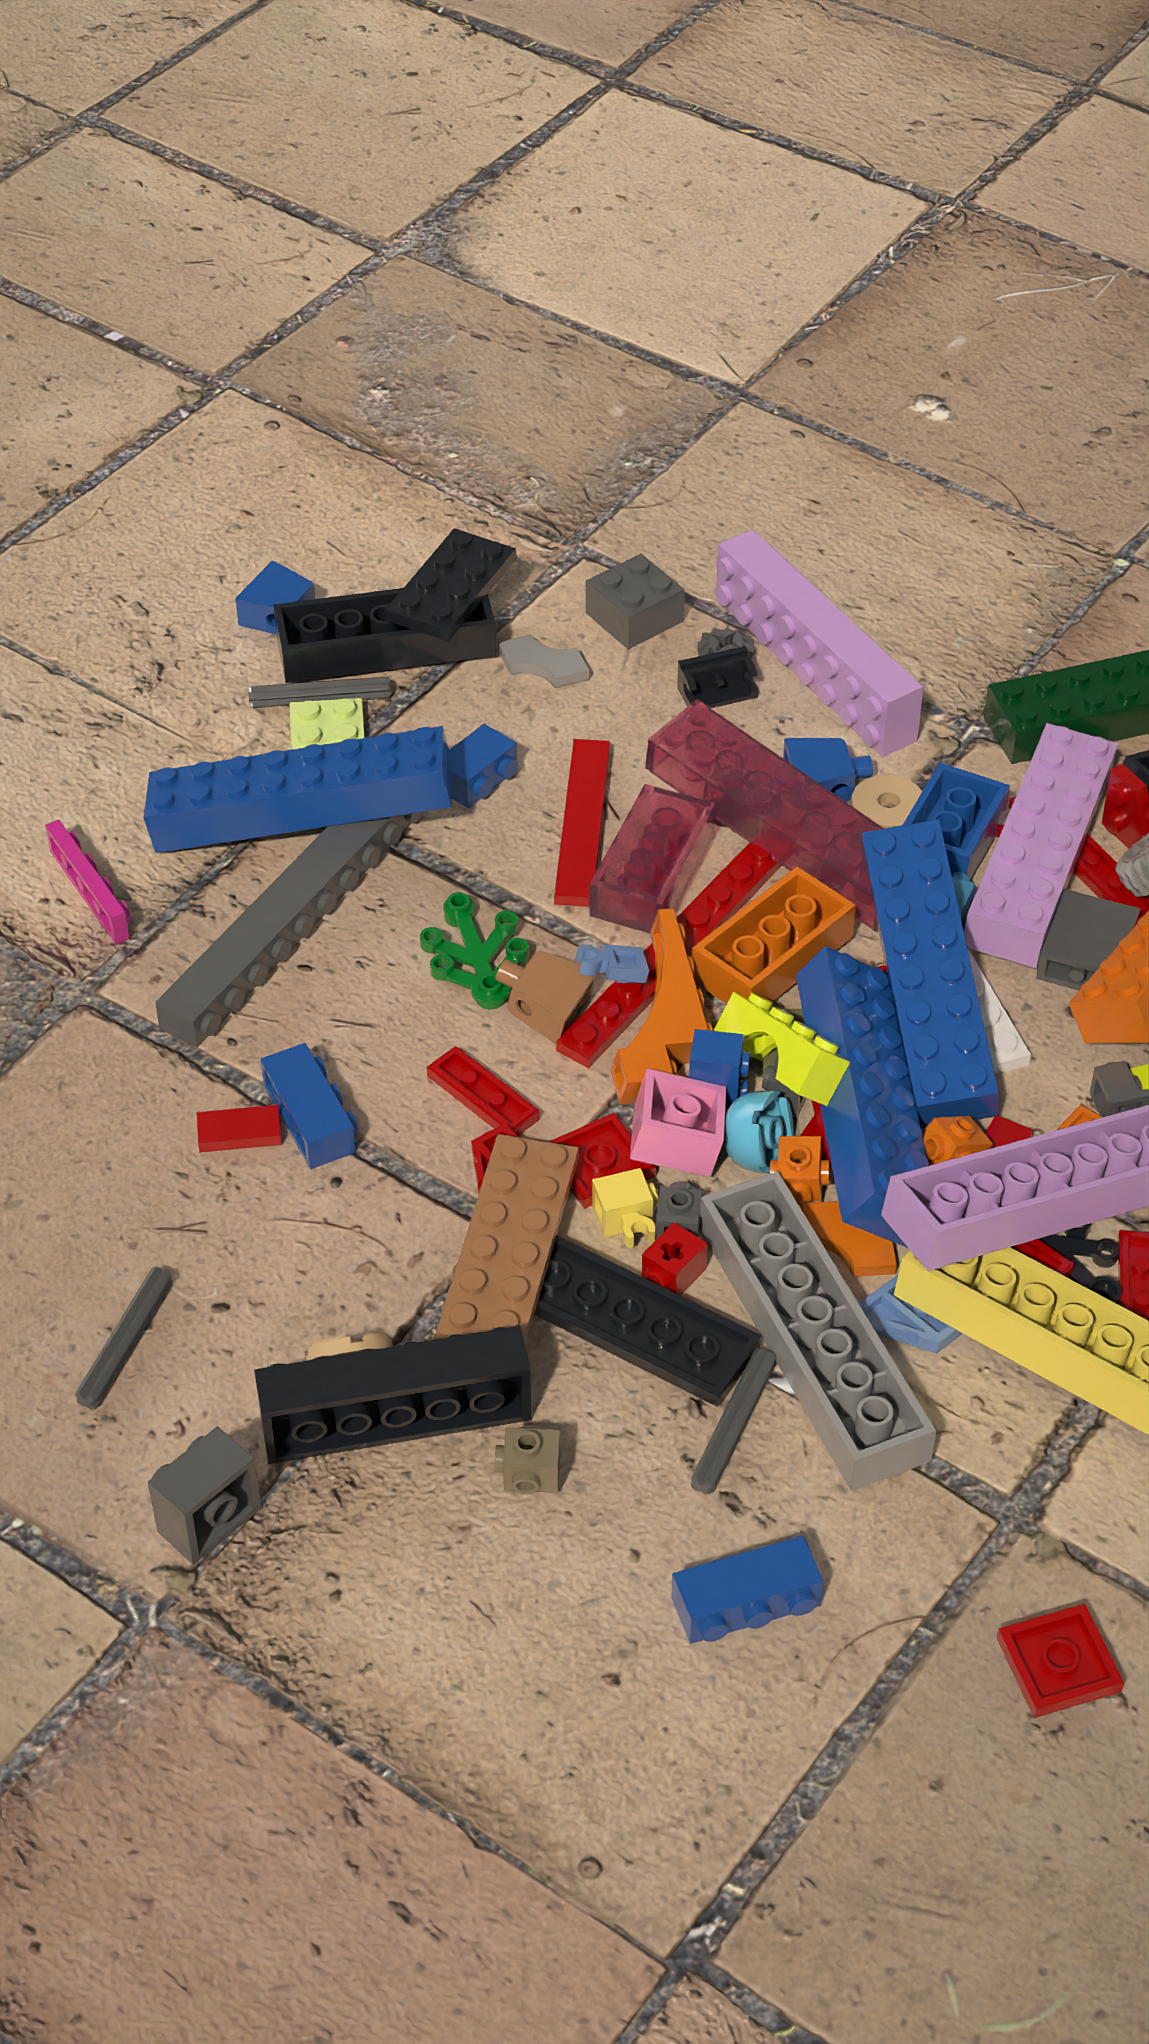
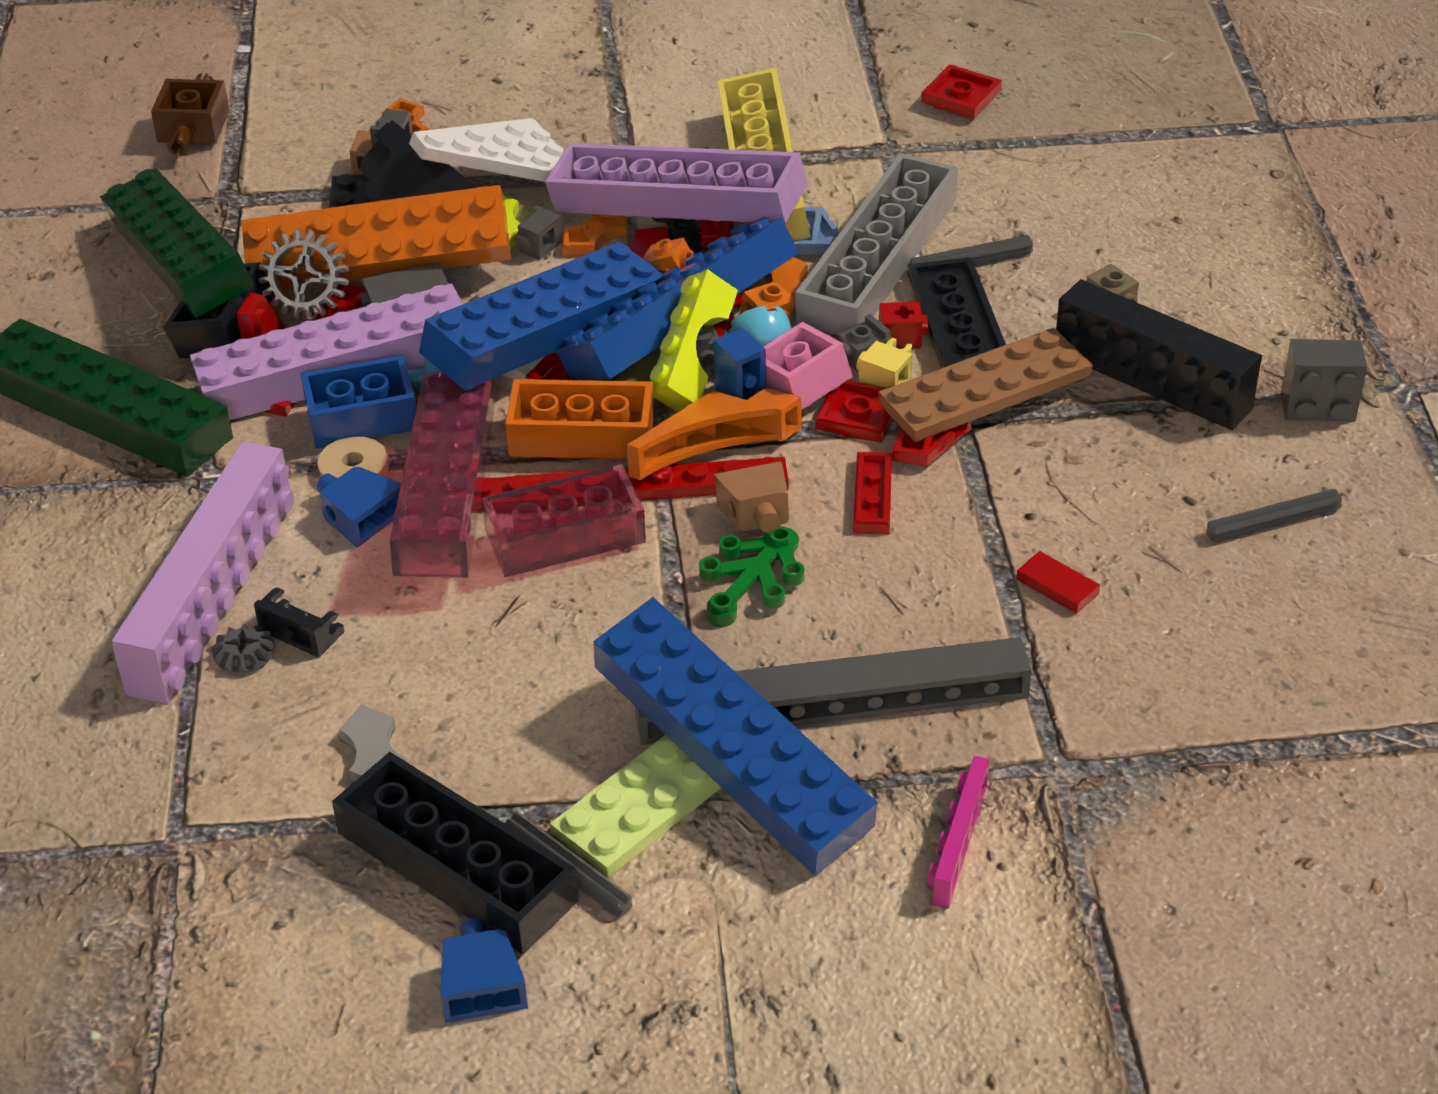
camera: 130 degrees left, 5 degrees down
(309, 1105) = (998, 551): blue brick -> none
(345, 1345) = (1173, 384): tan tile -> none
(450, 584) = (369, 805): black plate -> none
(481, 764) = (558, 691): blue brick -> none
(582, 822) = (546, 606): red tile -> none
(619, 962) = (699, 462): medium blue plate -> none
(634, 601) = (241, 723): dark grey brick -> none
(747, 1590) = (1070, 191): blue brick -> none

